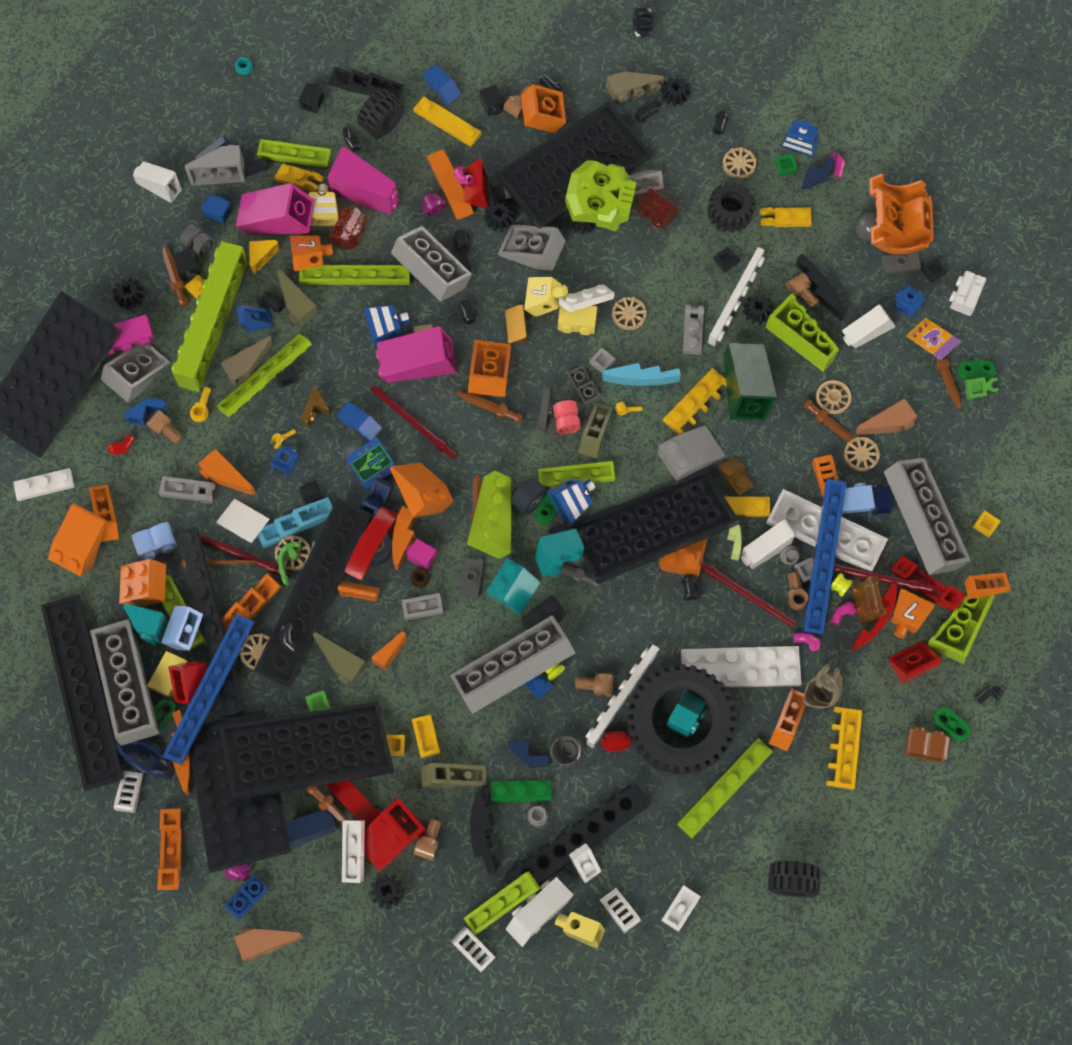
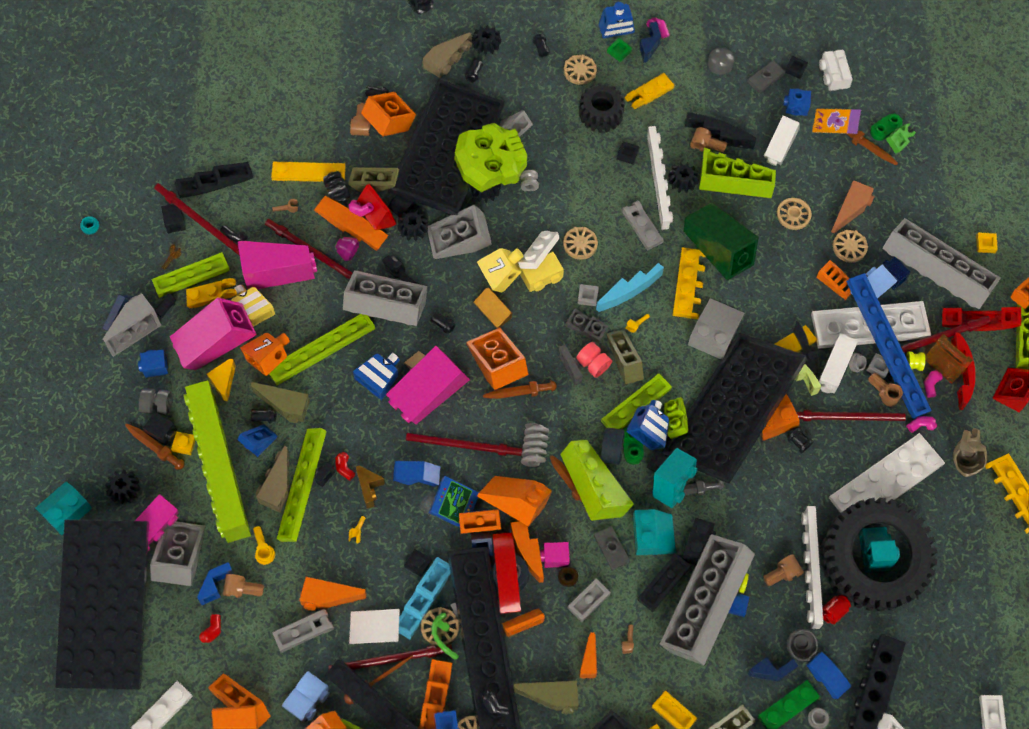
camera: 35 degrees left, 5 degrees down
(75, 282) = (63, 505): none -> teal slope
(158, 180) = (80, 369): white slope -> none
(285, 460) = (375, 547): blue window -> none
(294, 130) = (173, 255): none -> clear orange hand
(305, 379) = (341, 466): none -> red arm
(318, 81) = (171, 197): none -> dark red bar
(348, 228) = (288, 310): clear red brick -> none
(378, 490) = (479, 521): none -> orange slope
(380, 113) = (248, 196): black tyre -> none
(391, 160) = (282, 231): none -> dark red bar
(409, 141) = (287, 207): none -> medium nougat hand
(427, 662) = (627, 646): none -> medium nougat hand
(440, 81) = (278, 140): blue slope -> none
(458, 147) = (336, 186): none -> black gear
(467, 456) = (533, 445): none -> light grey piece
(491, 100) = (336, 132): black brick -> none
(492, 631) = (663, 582): none -> black plate
(493, 159) = (378, 178): none -> olive slope
(570, 788) = (827, 672): none -> blue slope
(601, 504) = (677, 416): none -> lime slope
(623, 234) = (529, 180): none -> light grey wheel
(657, 209) = (542, 143): clear red brick -> none
(724, 788) = (950, 591): lime plate -> none
(734, 474) = (762, 323): pearl gold slope -> none
(751, 525) = (811, 355): none -> black piece
(788, 720) = (959, 499): orange slope -> none
(822, 416) = (798, 234): dark orange sword -> none
(902, 217) = (745, 38): orange piece -> none
(909, 613) = (986, 350): orange torso -> none

